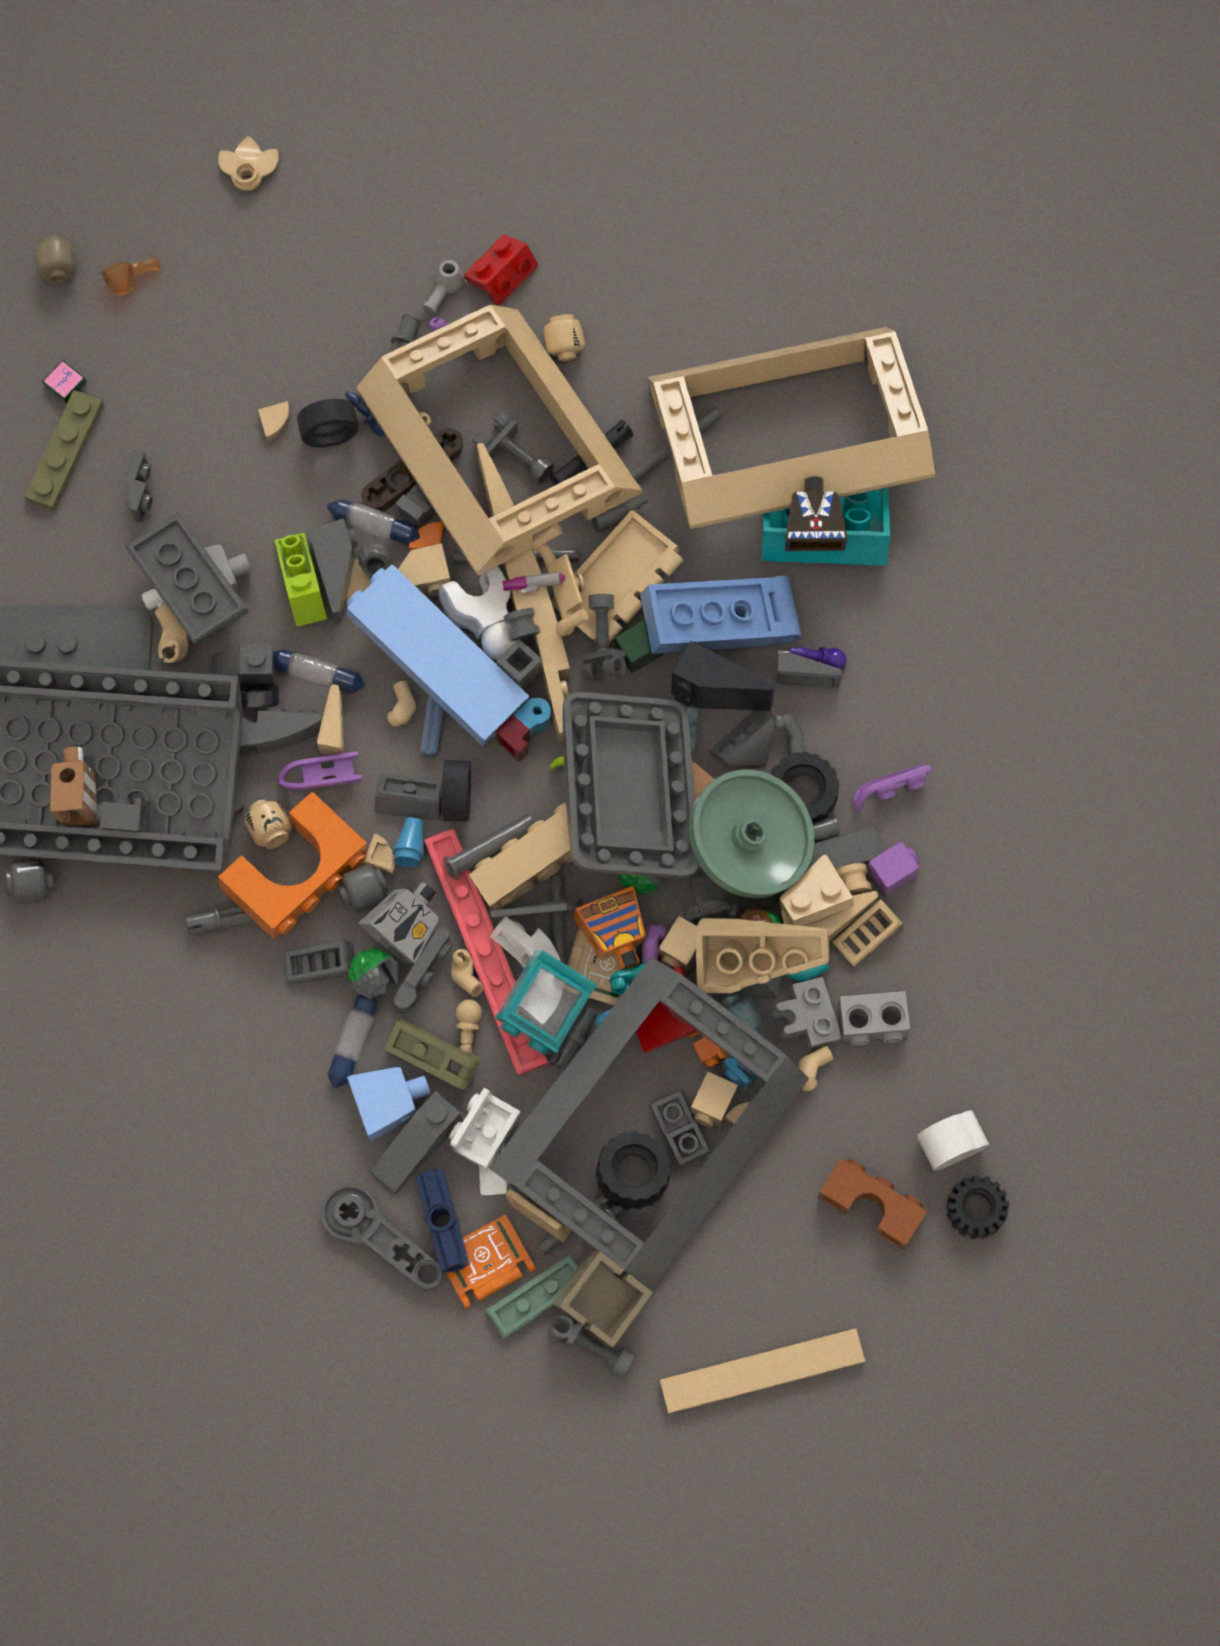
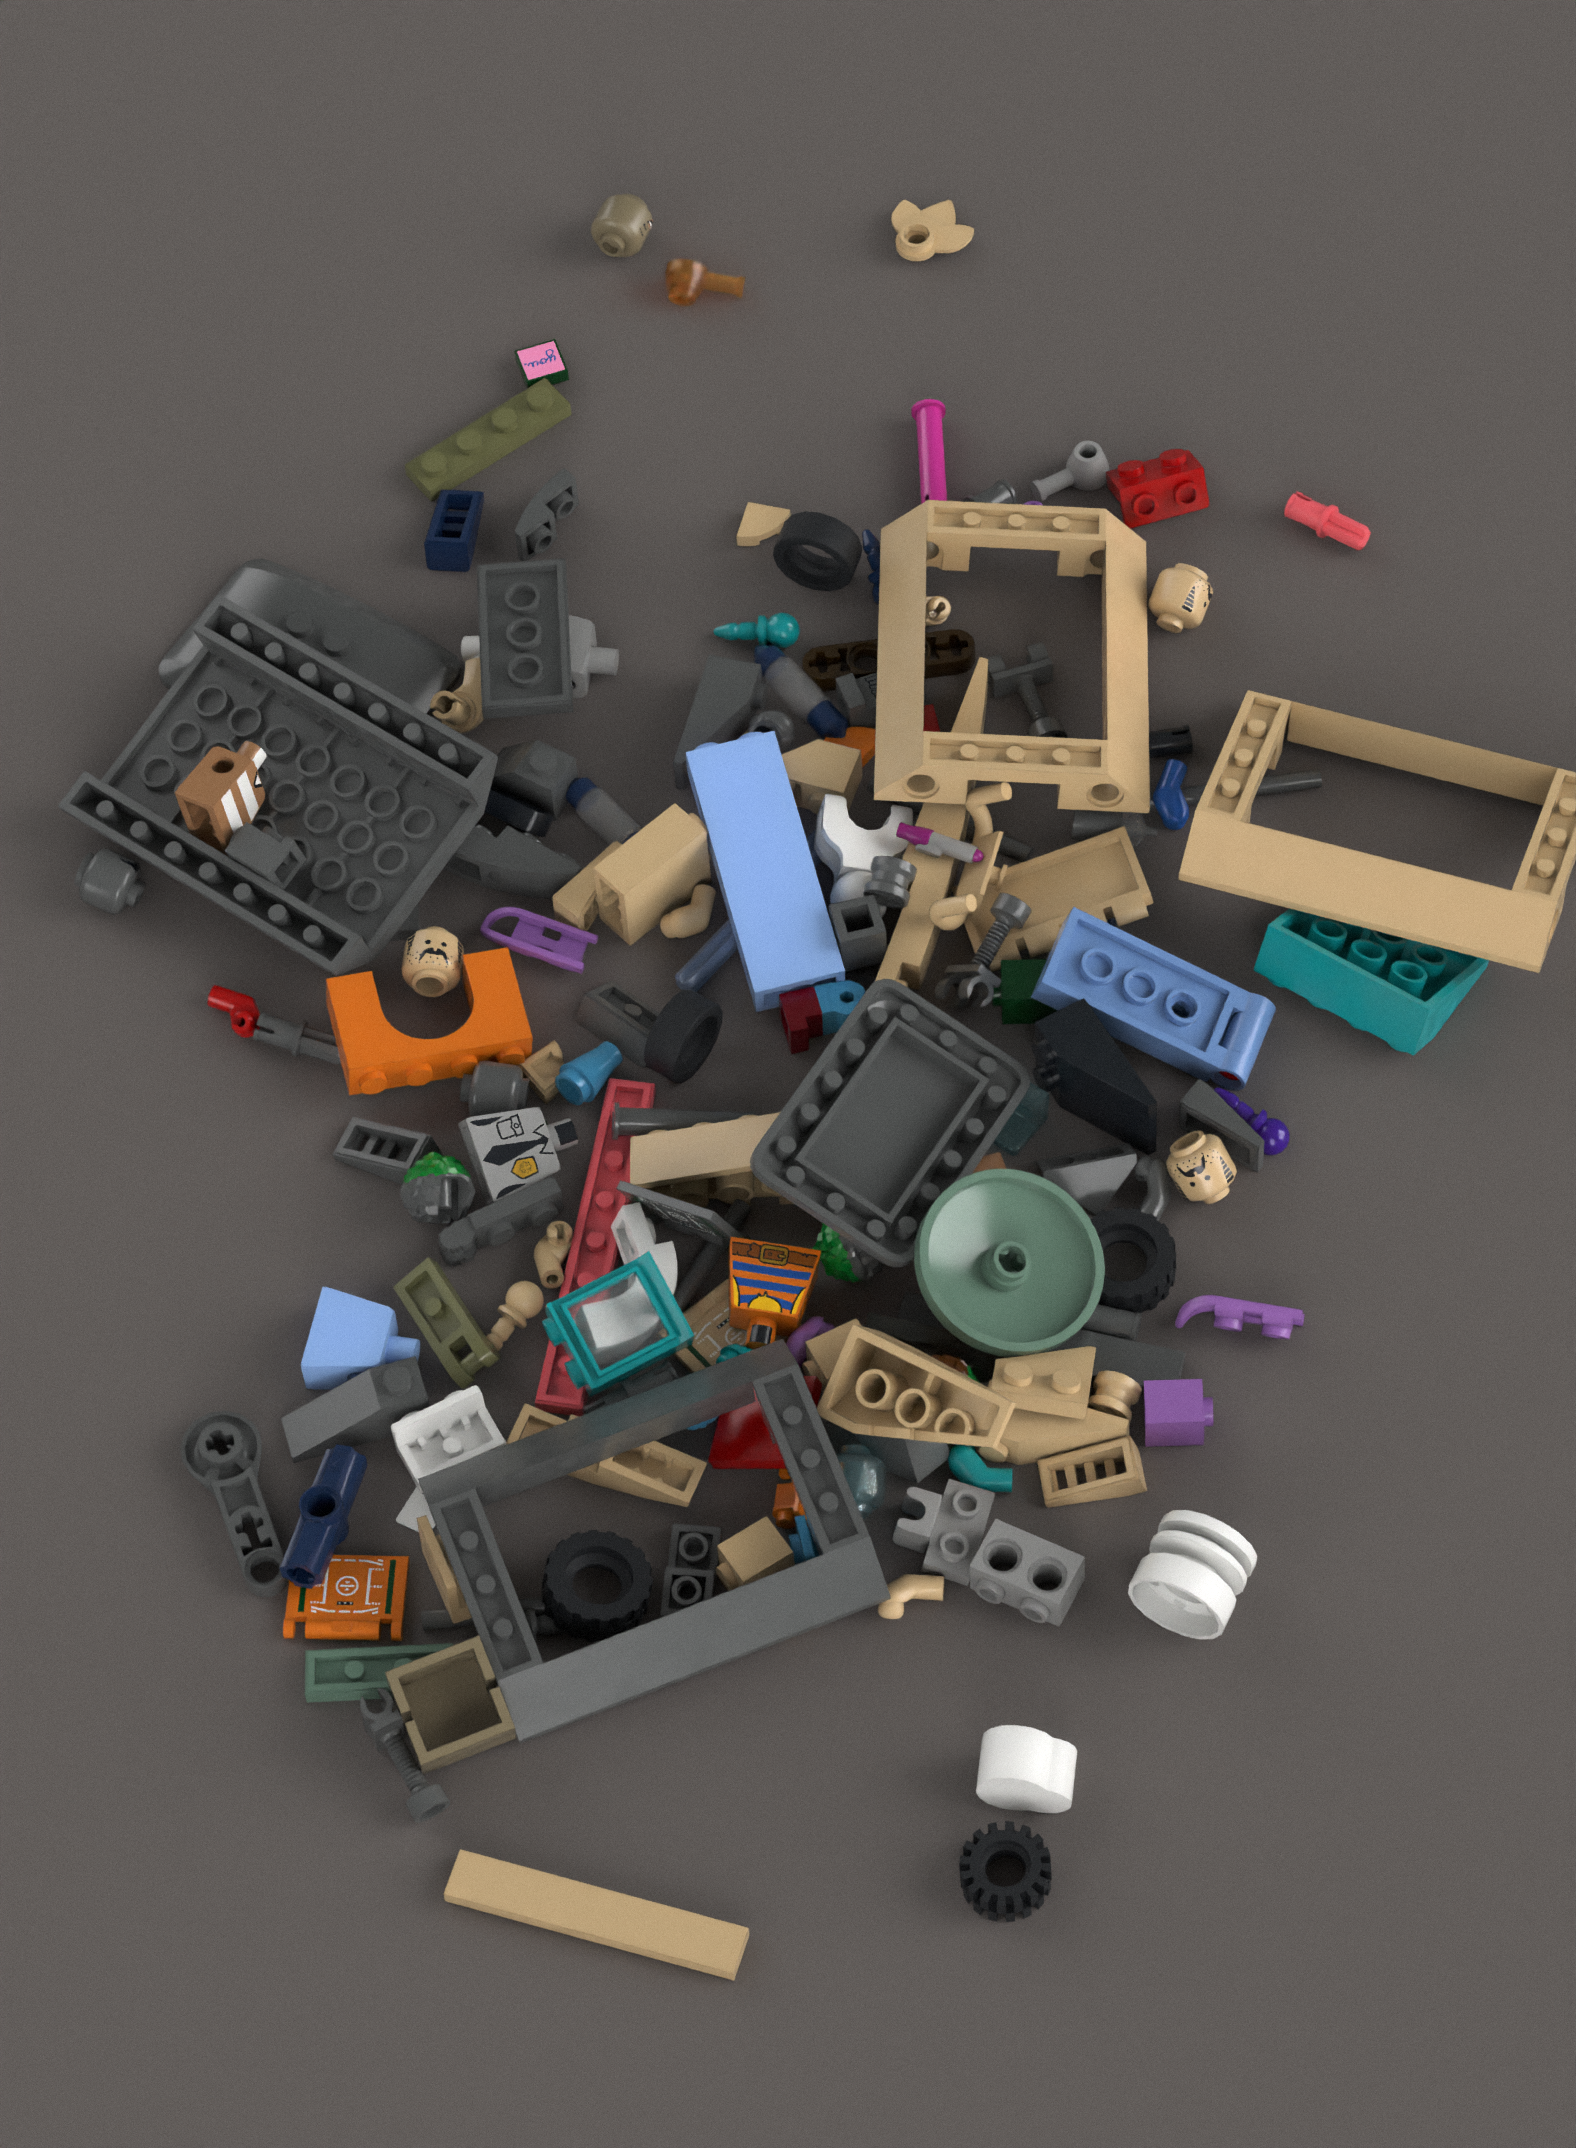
camera: 35 degrees right, 15 degrees down
(91, 540) = (453, 533): none -> dark blue slope
(167, 919) = (241, 1008): none -> red arm
(300, 579) = (661, 714): lime slope -> none
(334, 486) = (778, 630): none -> teal bar
(352, 321) = (928, 419): none -> dark pink pin
(352, 1040) = (365, 1255): piece -> none
(369, 693) = (652, 873): none -> tan brick
(617, 239) = (1327, 521): none -> coral axle
(620, 1078) = (645, 1471): none -> tan slope
(641, 473) = (1169, 797): none -> blue arm
(813, 705) = (1201, 1167): none -> tan head
(815, 520) = (1337, 937): torso -> none
(850, 1184) = (856, 1754): dark orange arch -> none
(973, 966) = (1192, 1574): none -> white wheel

